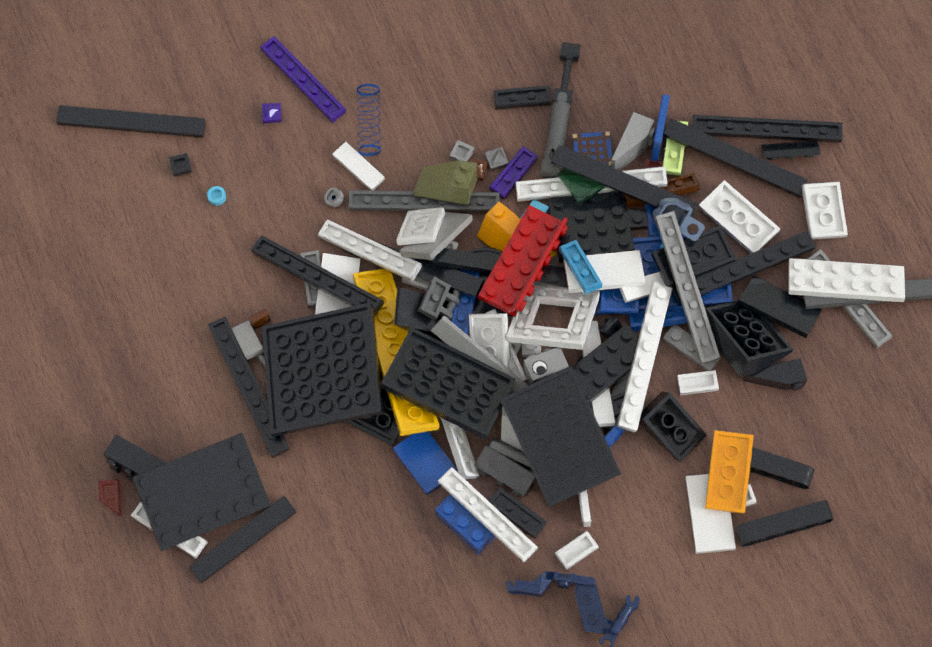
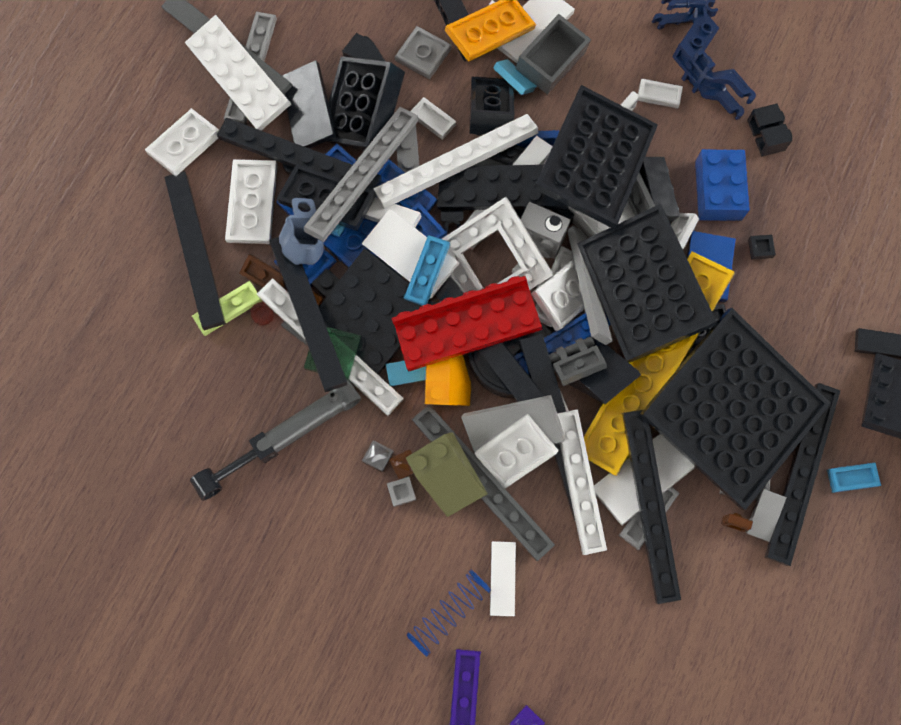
camera: 135 degrees left, 5 degrees up
(216, 195) = (661, 691): medium azure tile -> none
(216, 415) = (853, 477): none -> dark azure tile
(334, 197) = (556, 570): light grey tile -> none
(405, 504) = (761, 247): none -> black plate
(469, 588) = (769, 123): none -> black piece
(487, 514) = (714, 162): white tile -> none
(513, 172) = (377, 429): dark purple tile -> none
(517, 513) = (678, 157): black plate -> none
(522, 97) = (292, 490): black tile -> none
(595, 144) = (290, 378): reddish brown tile -> none
(634, 142) = (254, 341): light grey slope -> none
(660, 127) = (220, 327): blue tile -> none
(669, 495) = (553, 54): none -> dark grey piece
(678, 460) = (513, 77): none -> medium azure tile
(757, 419) = (423, 52): none -> light grey tile
(768, 128) = (140, 248): black plate -> none
(790, 150) = (145, 211): black plate -> none

